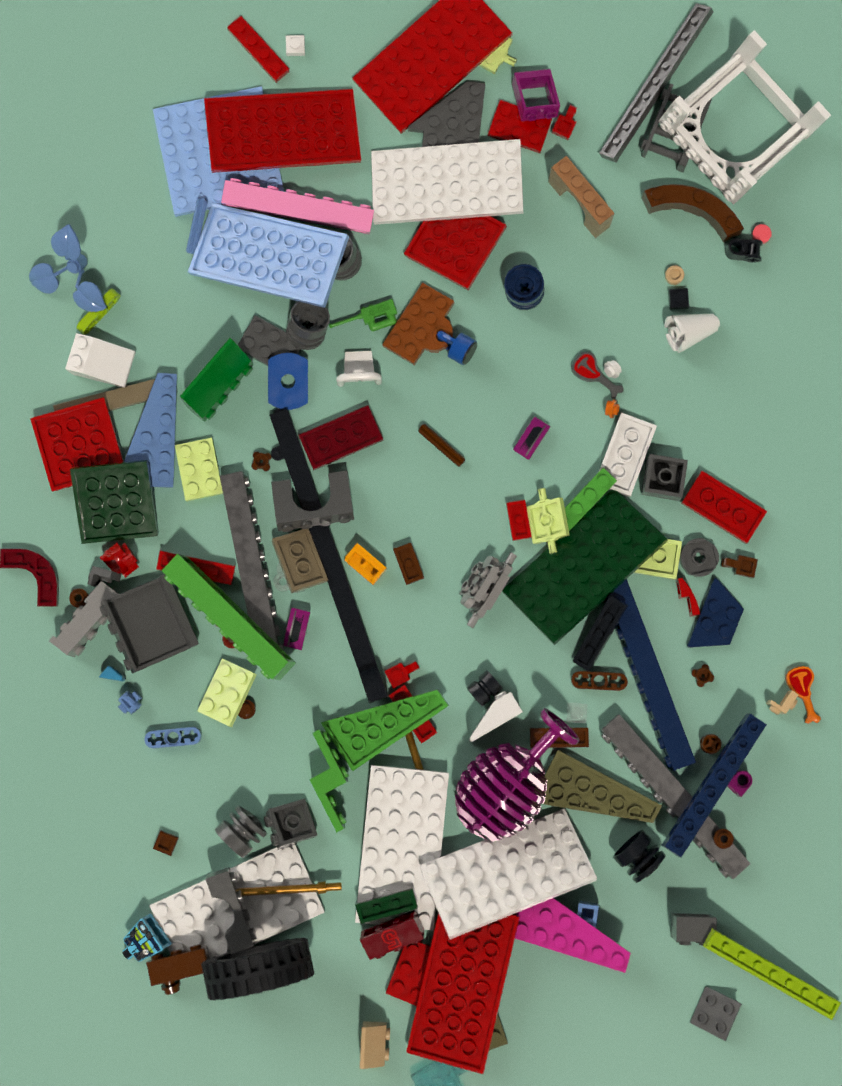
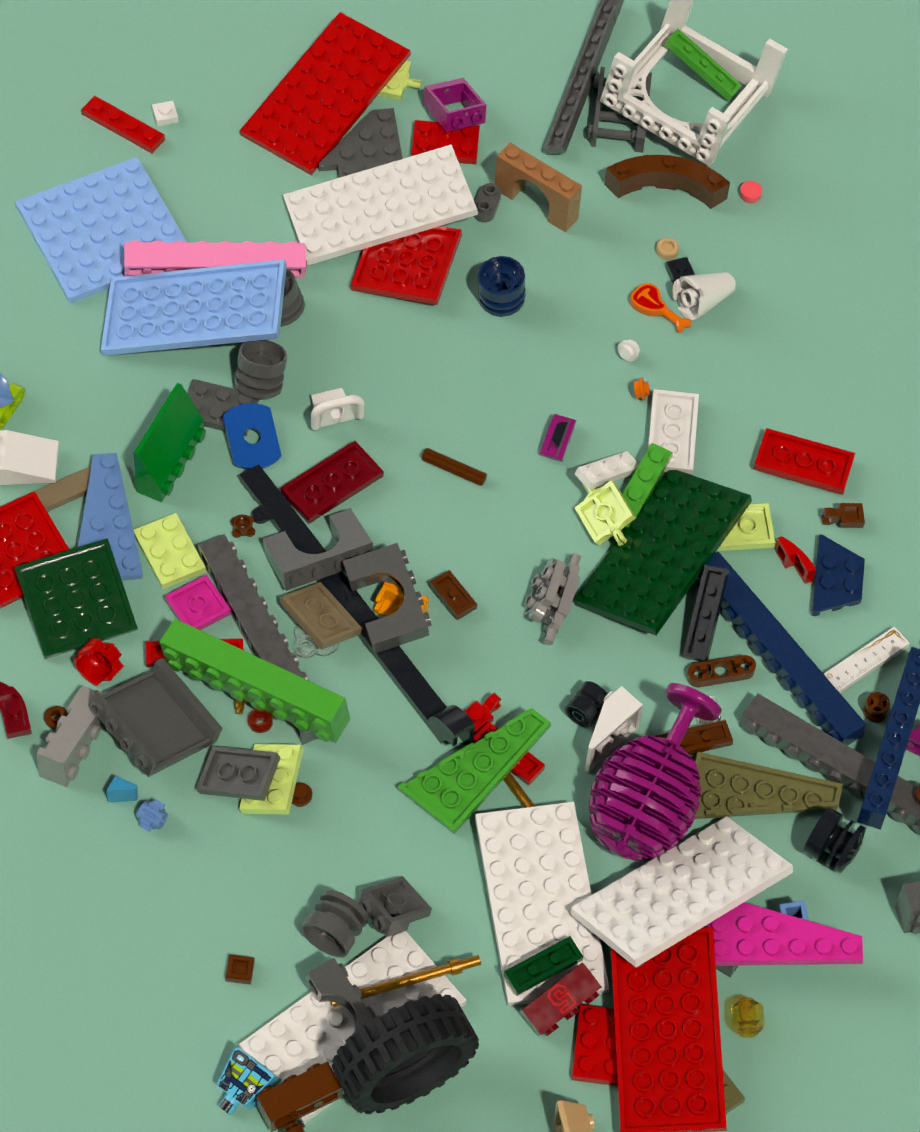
camera: 20 degrees left, 25 degrees down
(99, 574) = (87, 677): dark grey bracket -> none
(158, 733) = (236, 846): medium blue beam -> none
(196, 226) = (99, 302): medium blue axle -> none
(201, 685) = (238, 773): none -> dark grey plate
(208, 525) = (198, 603): none -> dark pink plate
(282, 130) = (174, 190): red plate -> none
(296, 628) = (339, 682): magenta slope -> none
(329, 780) = (428, 841): bright green bracket -> none
(365, 586) = (389, 566): none -> dark grey arch
(373, 311) = (328, 352): bright green piece -> none
(426, 328) = (400, 351): dark orange plate -> none
(518, 520) = (570, 523): red plate -> none
(528, 981) = (747, 1017): none -> clear yellow head
(538, 194) = (488, 198): none -> dark grey plate
(561, 481) = (607, 469): none -> white plate
(565, 125) = (496, 129): red plate -> none
(586, 369) = (598, 358): dark grey piece -> none
(642, 323) = (648, 301): none -> orange piece
(664, 477) = (726, 441): dark grey brick -> none
(703, 670) = (844, 633): reddish brown plate -> none
(705, 548) = (792, 529): dark grey plate -> none
(715, 699) = (867, 659): none -> white tile
(748, 250) = (736, 208): black piece -> none
(758, 100) = (702, 64): none -> bright green plate

